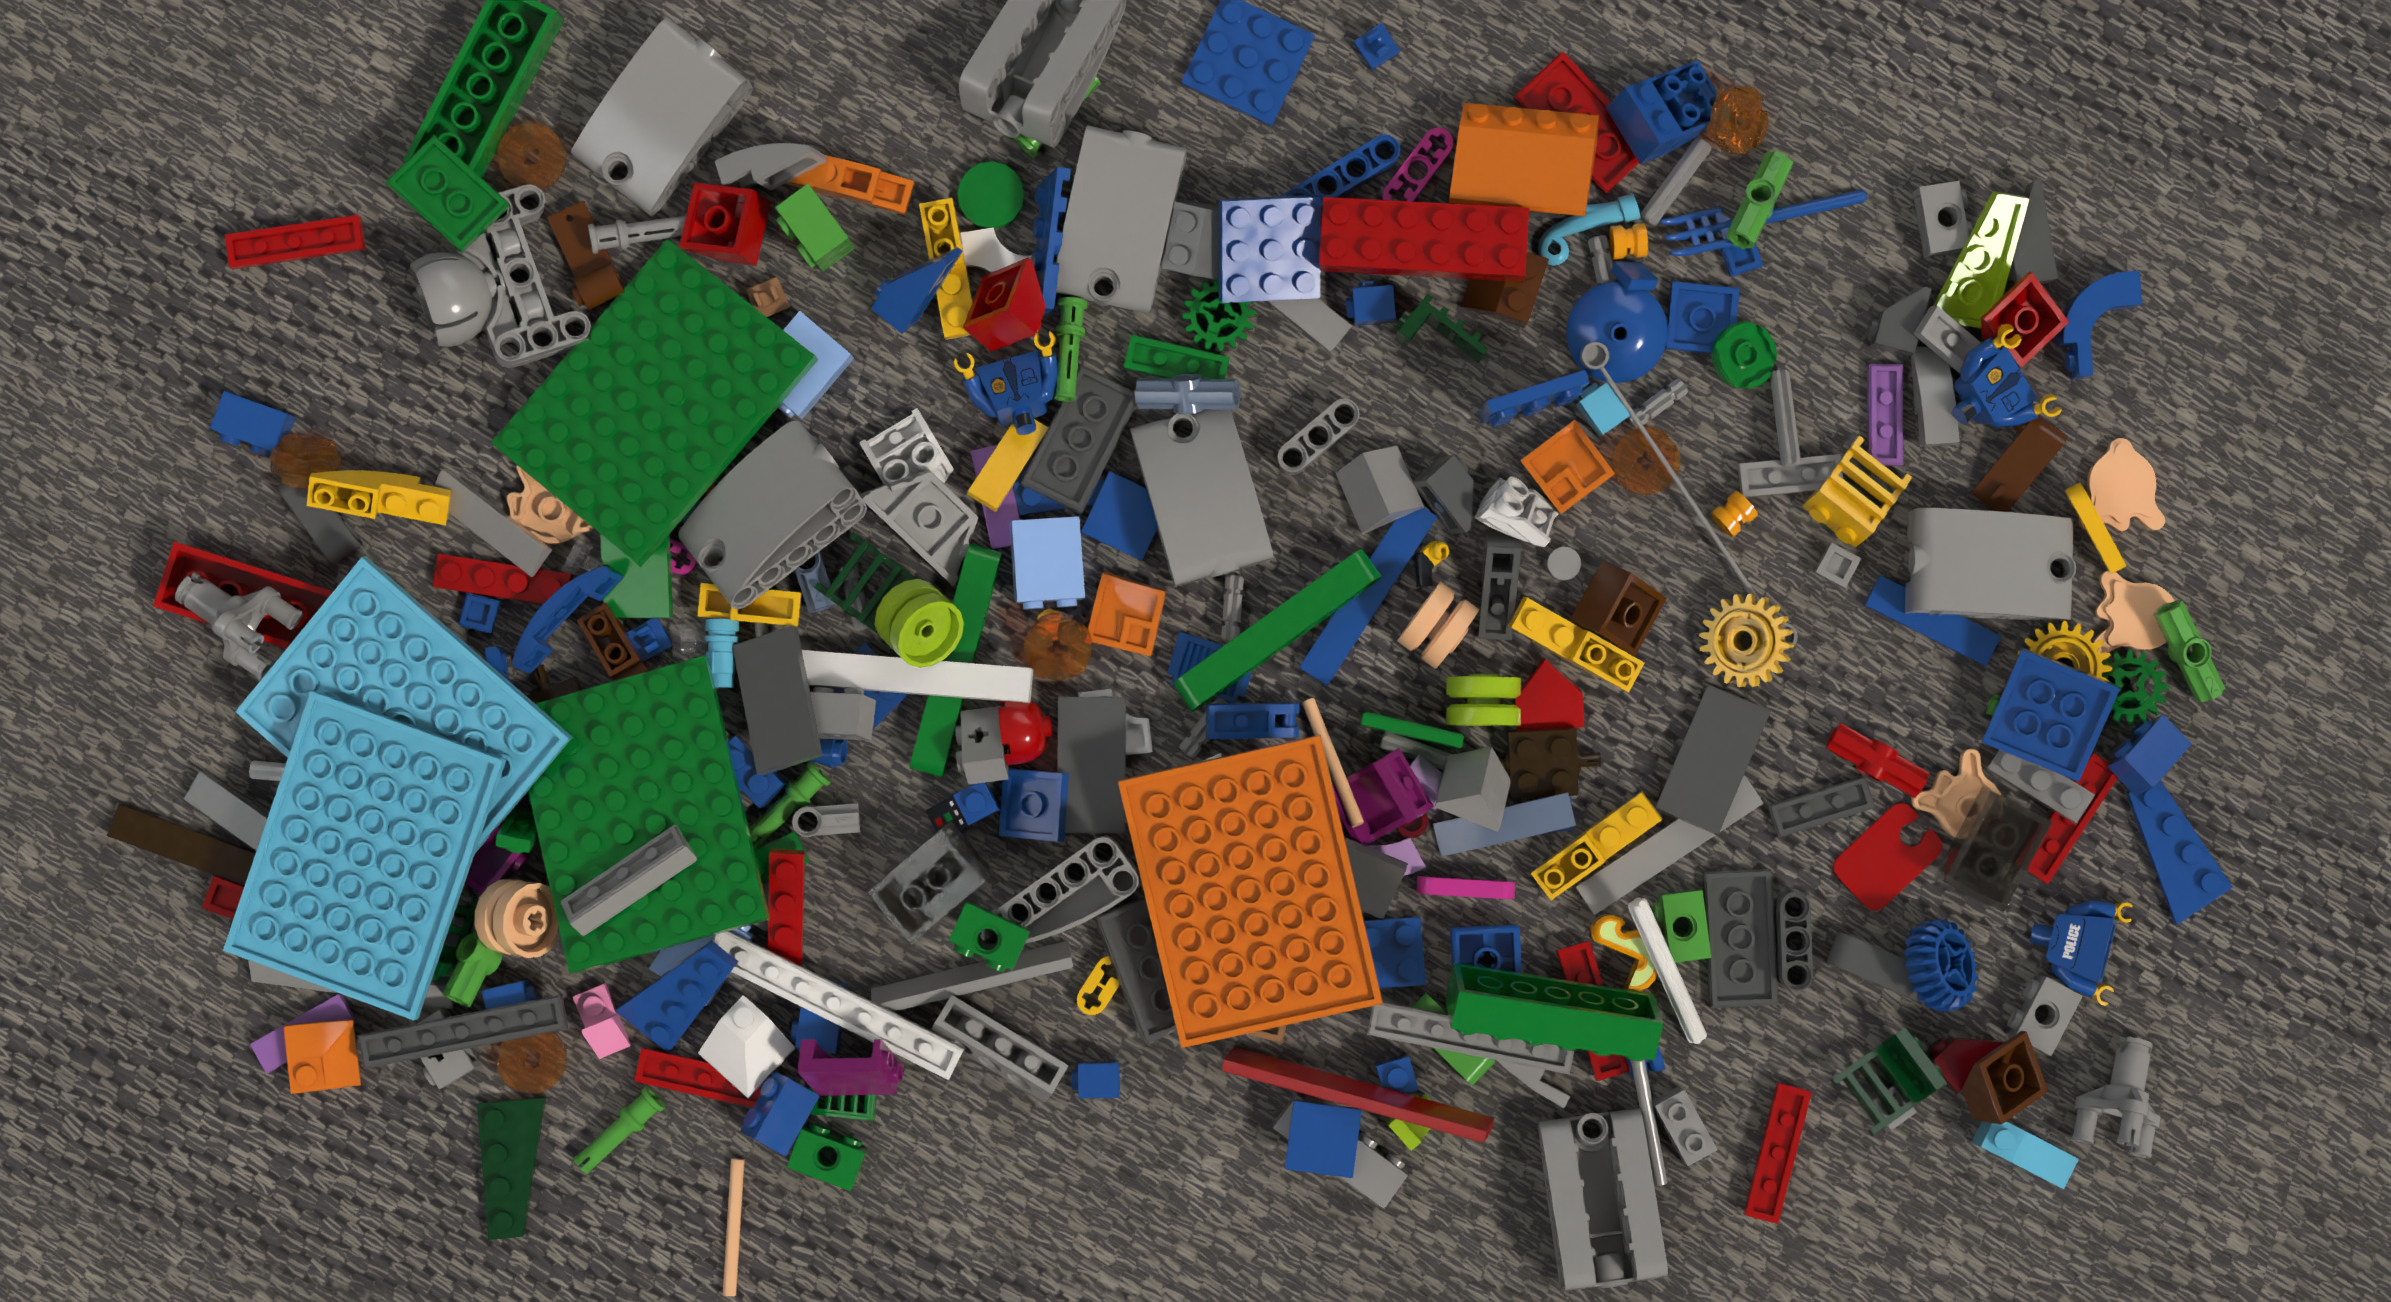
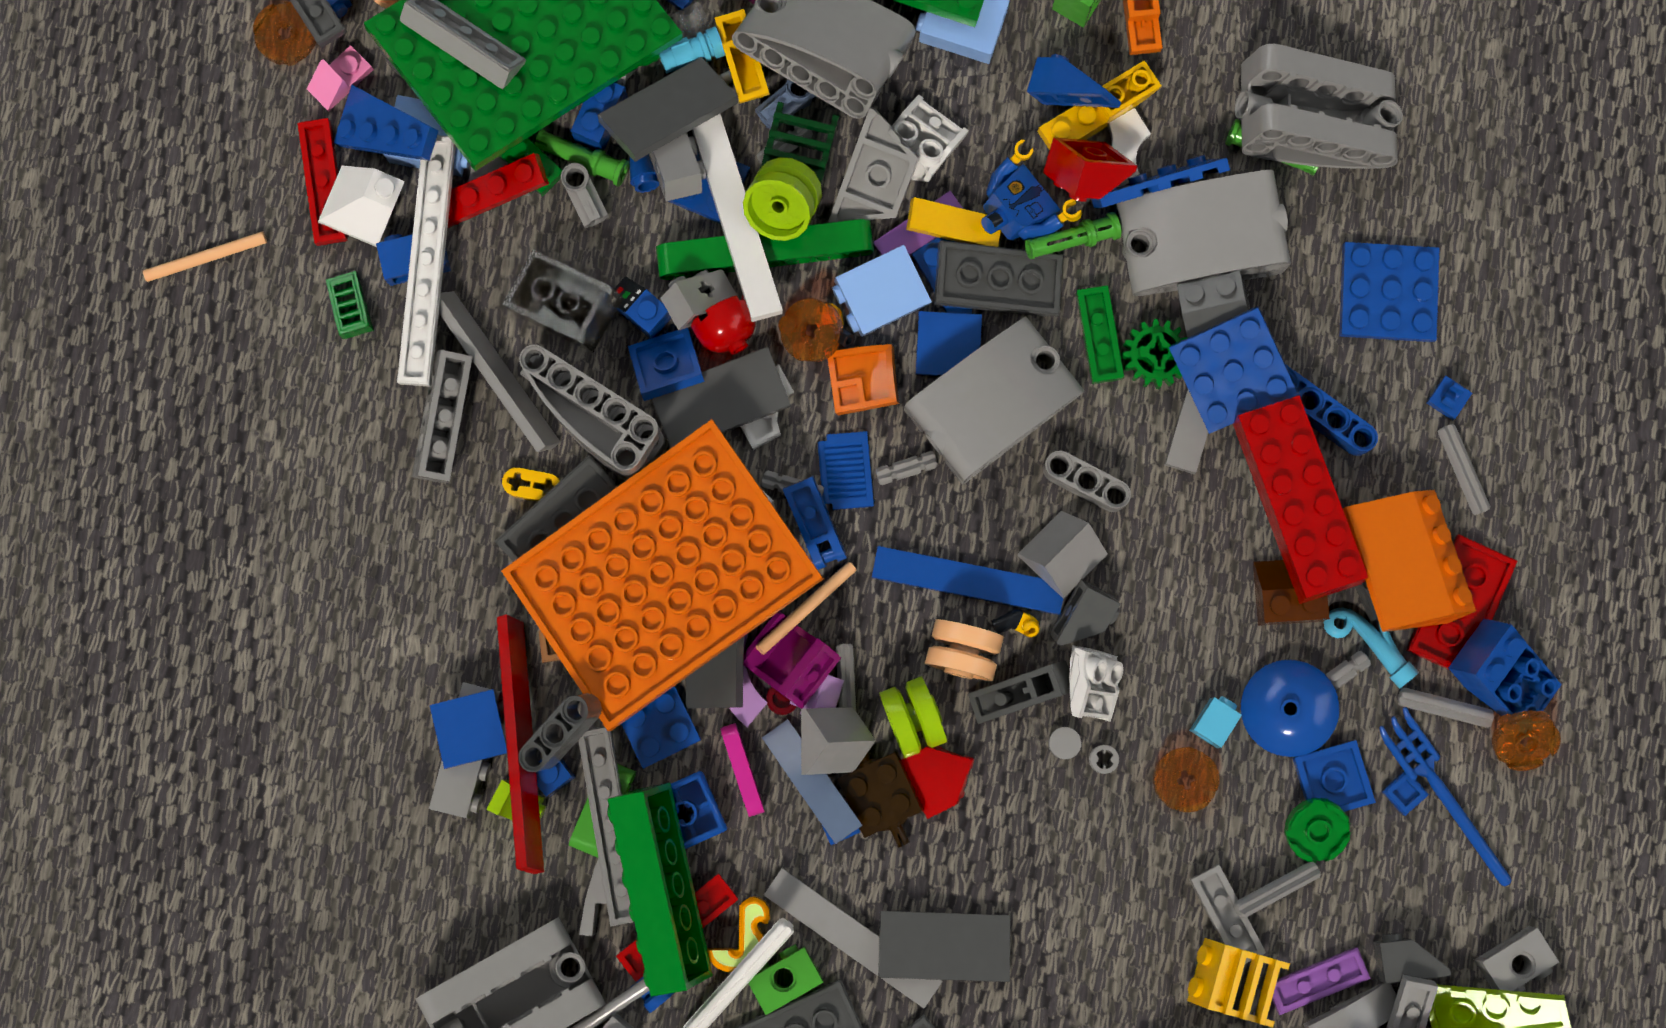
camera: 70 degrees right, 5 degrees down
(508, 1154) = (196, 46): dark green wing -> none
(631, 1119) = (264, 134): bright green pin -> none
(779, 1113) = (314, 252): blue brick -> none
(807, 1159) = (284, 294): green brick -> none
(850, 1075) = (378, 318): magenta panel -> none
(991, 195) = (1177, 121): green tile -> none
(1010, 937) = (537, 375): green brick -> none
(1097, 1079) = (448, 513): blue brick -> none
(1187, 393) = (1077, 352): sand blue piece -> none
(1277, 630) = (902, 512): green beam -> none
(1367, 1065) = (546, 736): none -> dark grey beam
(1371, 304) = (1222, 481): blue brick -> none
(1411, 730) = (861, 662): green tile -> none
(1412, 321) = (1223, 522): dark green plate -> none
(1425, 145) = (1381, 474): dark pink beam -> none
(1452, 63) = (1463, 469): none -> light grey axle
(1533, 399) = (1200, 653): blue plate -> none
(1567, 466) = (1151, 711): orange plate -> none
(1575, 645) = (997, 781): yellow slope -> none
(1590, 542) = (1114, 759): none -> light grey bush
(1594, 357) = (1081, 964): light grey piece -> none
(1596, 845) = (825, 871): yellow slope -> none
(1618, 608) = (1045, 807): reddish brown slope -> none
(1628, 241) = (1374, 686): light orange wheel -> none
(1634, 275) = (1346, 702): blue tile -> none
(1659, 402) = (1241, 770): light grey axle -> none
(1736, 512) = (1173, 878): light orange wheel -> none
(1752, 213) = (1448, 787): bright green piece -> none
(1766, 634) = (1068, 952): yellow gear -> none
(1837, 565) = (1164, 990): light grey plate -> none

